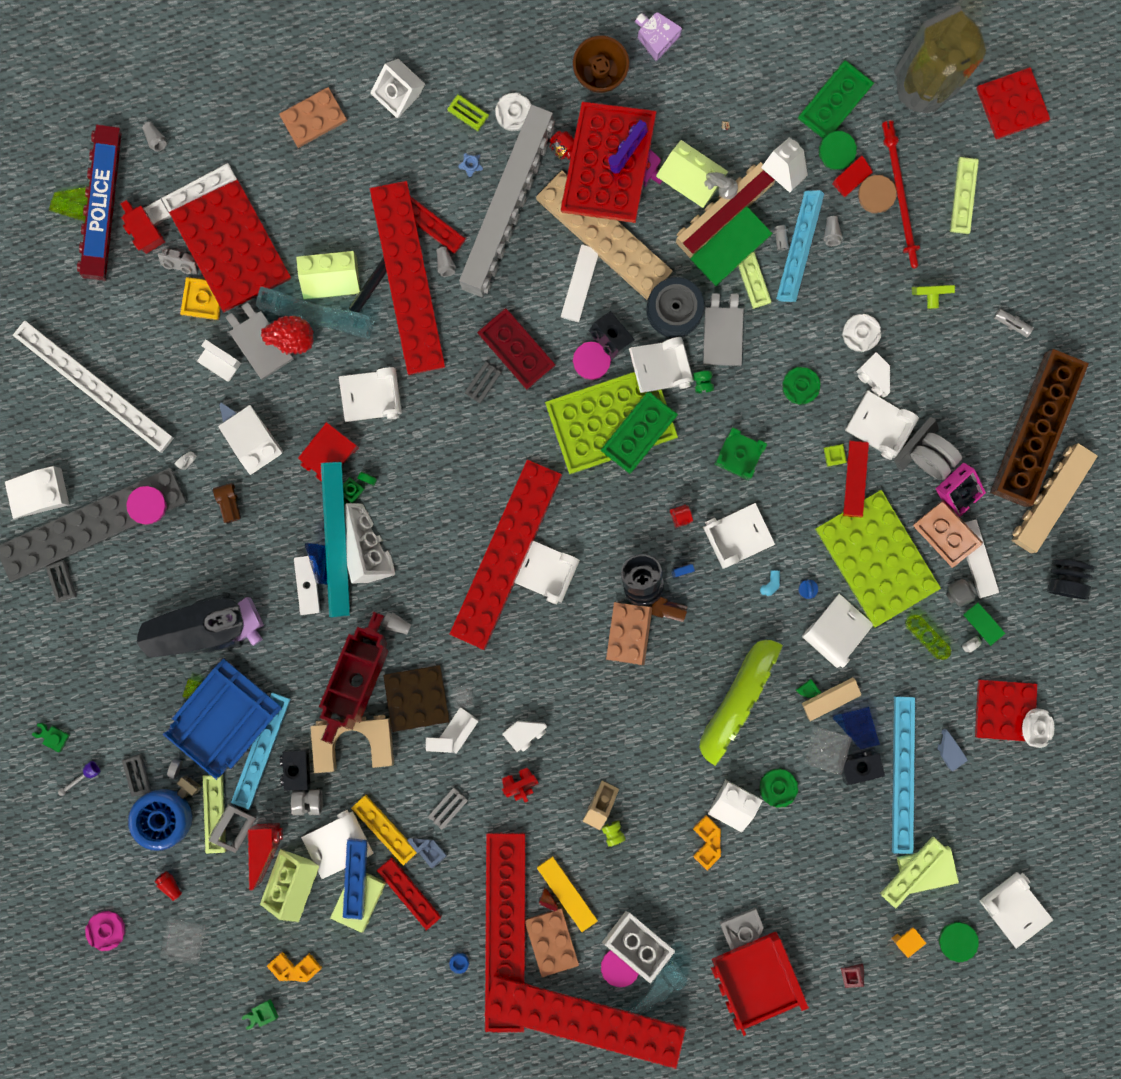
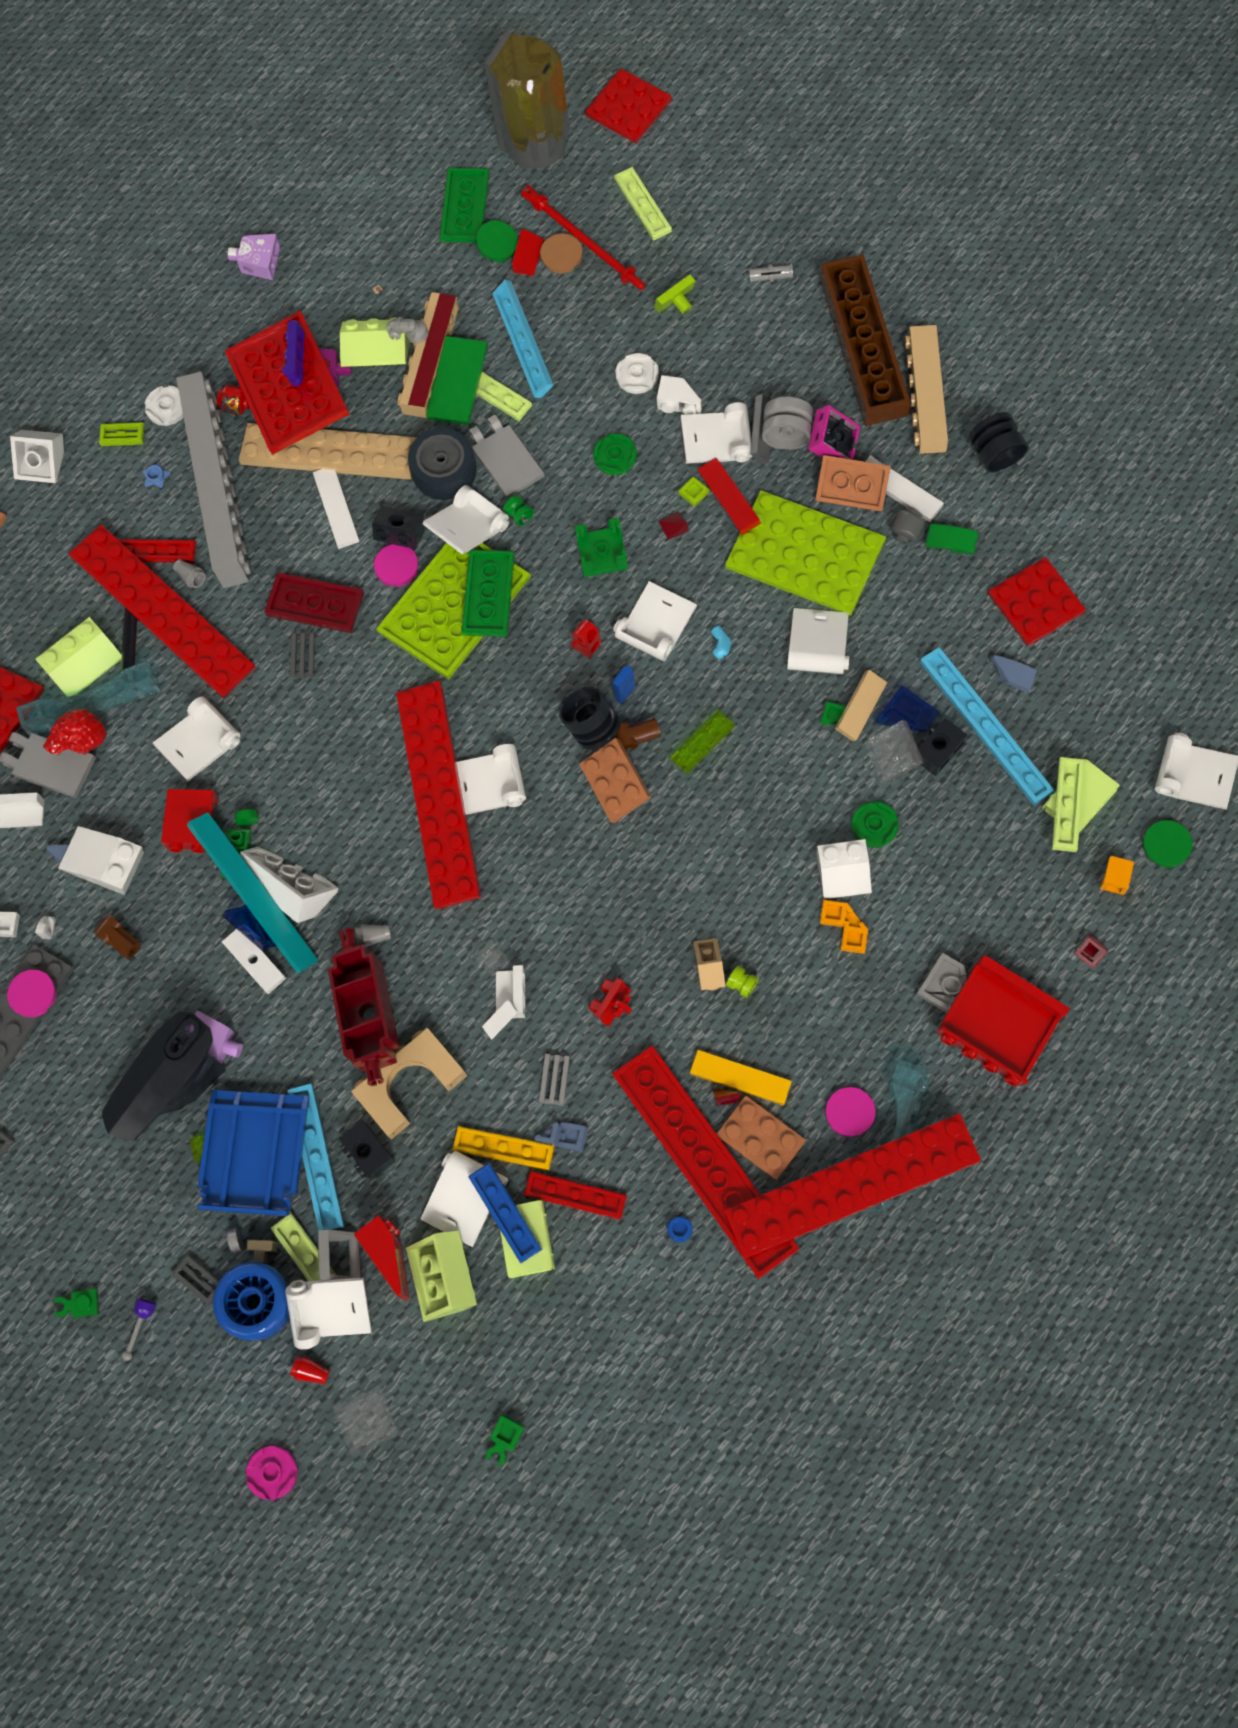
camera: 25 degrees left, 15 degrees down
(202, 856) = (327, 1309): none -> white door
(285, 969) = (500, 1372): light orange tile -> none
(306, 802) = (392, 1178): light grey wheel -> none
(416, 698) = (444, 993): dark brown plate -> none
(523, 732) = (577, 948): white slope -> none
(604, 55) = (220, 309): reddish brown piece -> none
(638, 946) = (851, 1072): white brick -> none
(707, 646) = (702, 742): none -> clear neon green plate
(739, 700) = (768, 762): lime brick -> none
(781, 237) = (495, 340): light grey pin -> none
(787, 164) = (457, 278): white slope -> none
(802, 471) = (673, 525): none -> dark red slope
(808, 589) = (760, 623): blue tile -> none
(832, 232) = (544, 308): light grey cone -> none
(934, 651) = (916, 581): clear neon green beam -> none
(972, 644) = (955, 565): white tile -> none
(1038, 728) = (1078, 593): white tile -> none

